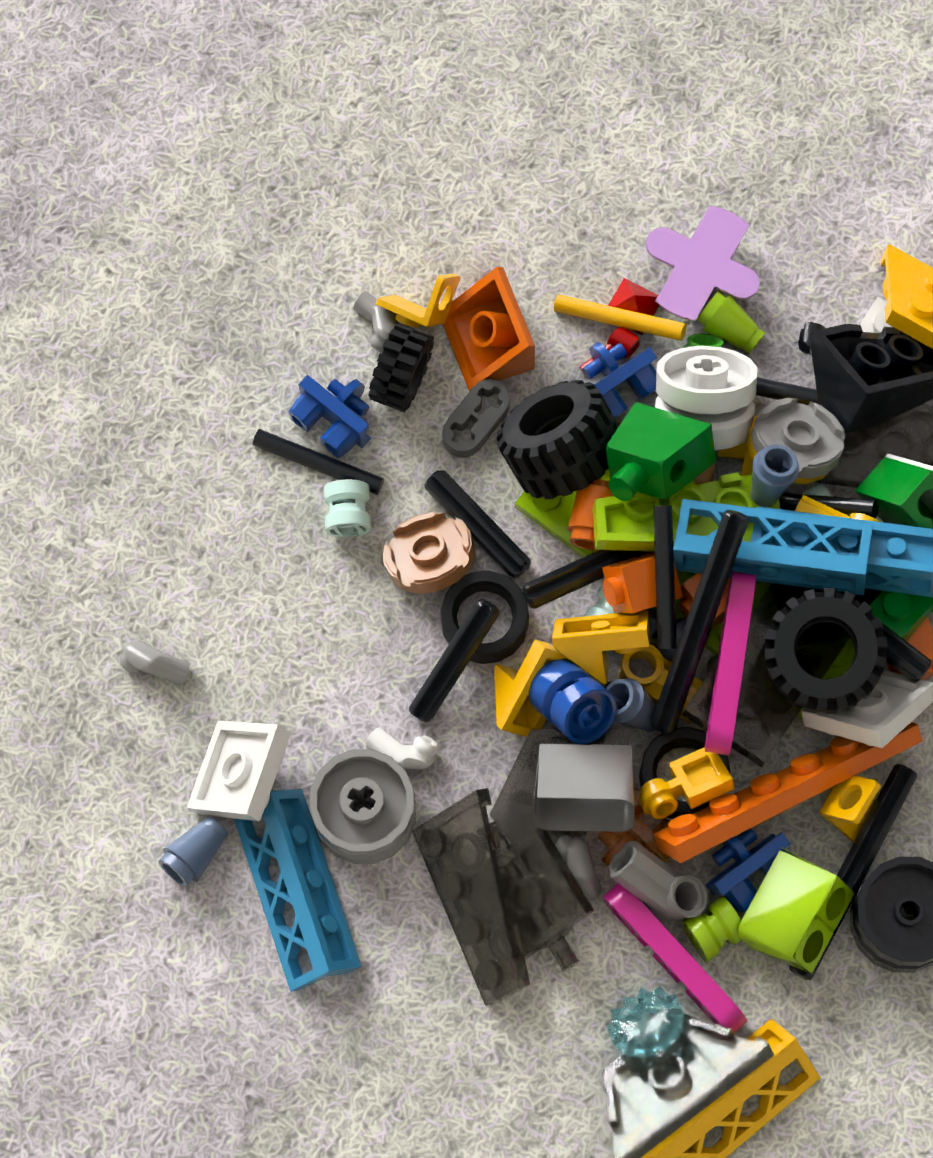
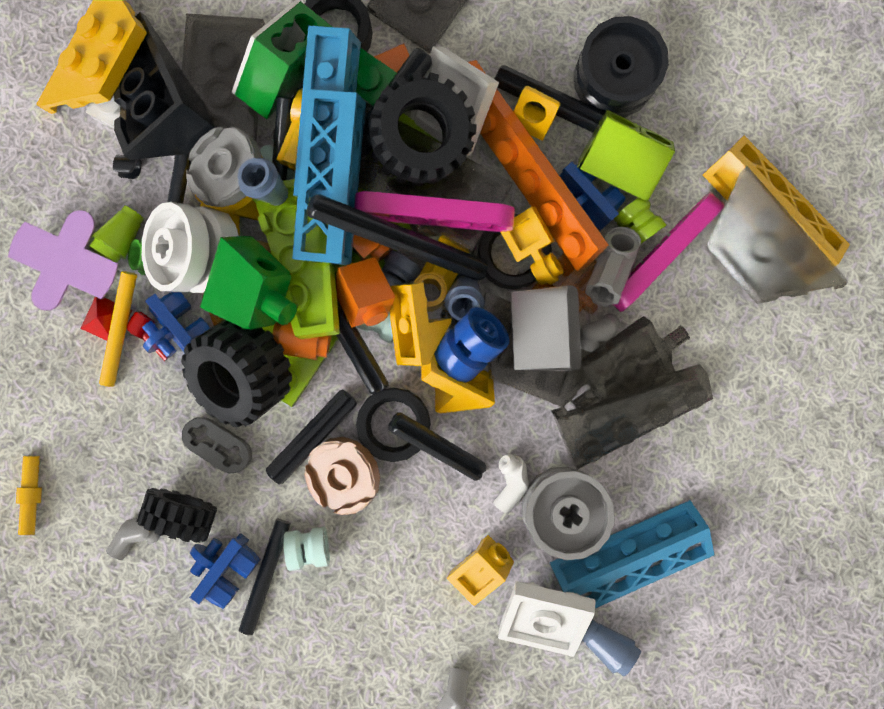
camera: 100 degrees left, 15 degrees up
(302, 706) = (482, 570): none -> yellow bracket
(416, 315) = (126, 504): yellow bracket -> none
(436, 213) = (28, 495): none -> yellow bar
(489, 331) = (137, 441): orange slope -> none
(661, 1028) = (728, 256): clear light blue gear -> none
(664, 577) = (361, 271): black bar -> none

